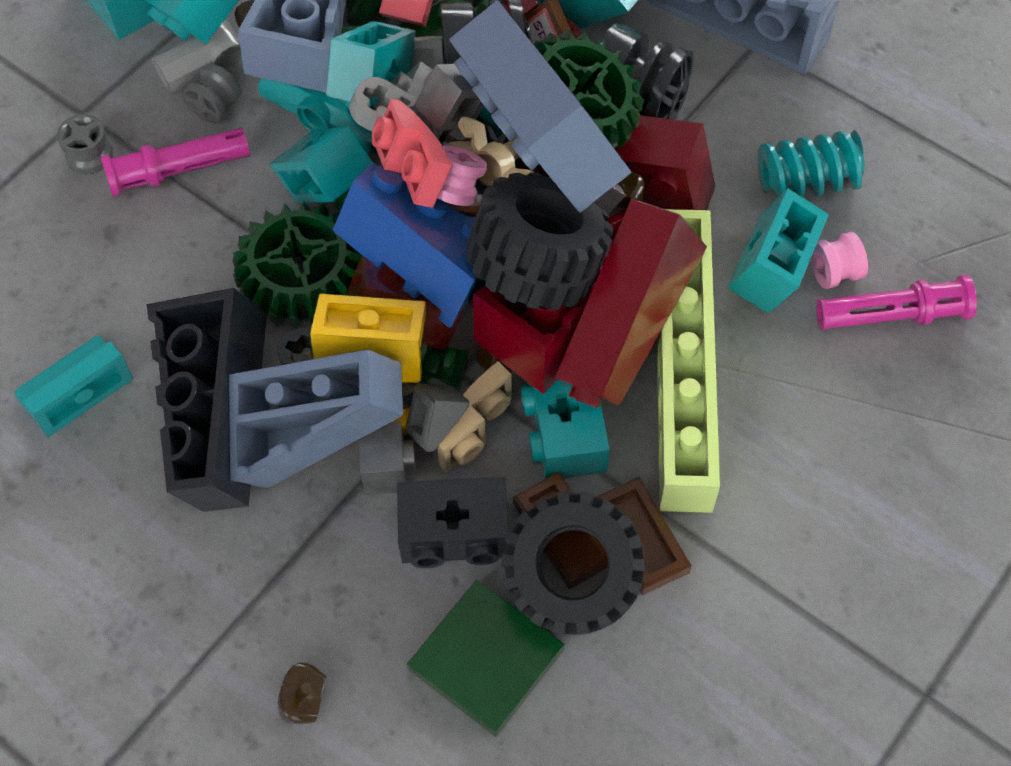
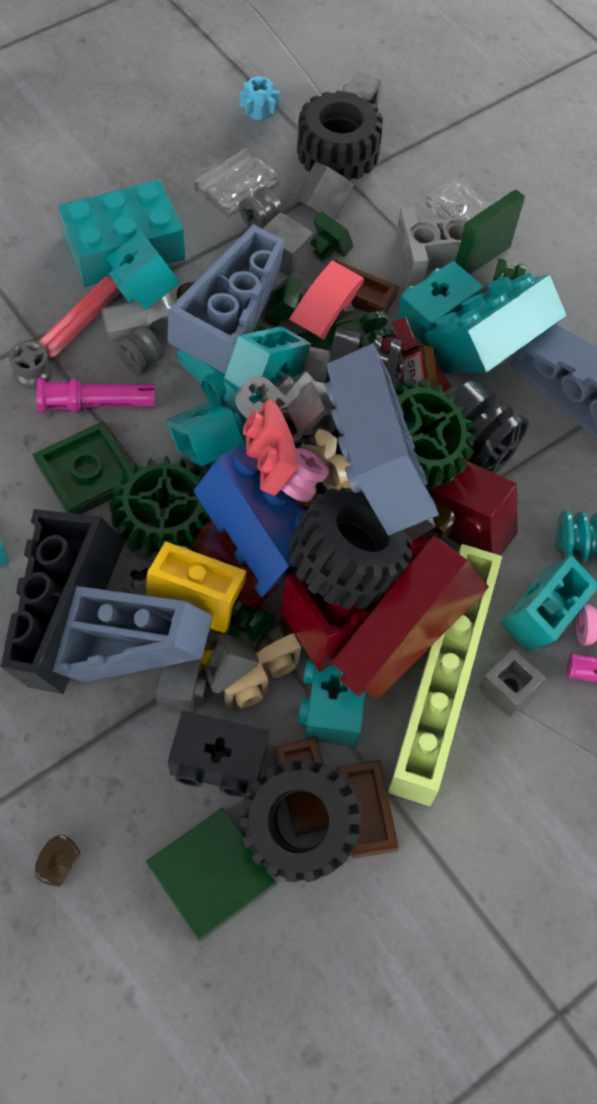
camera: 10 degrees right, 0 degrees up
(127, 73) = (79, 316): none -> coral axle
(187, 246) = (83, 468): none -> dark green tile
(762, 350) = (517, 673): none -> flat silver plate

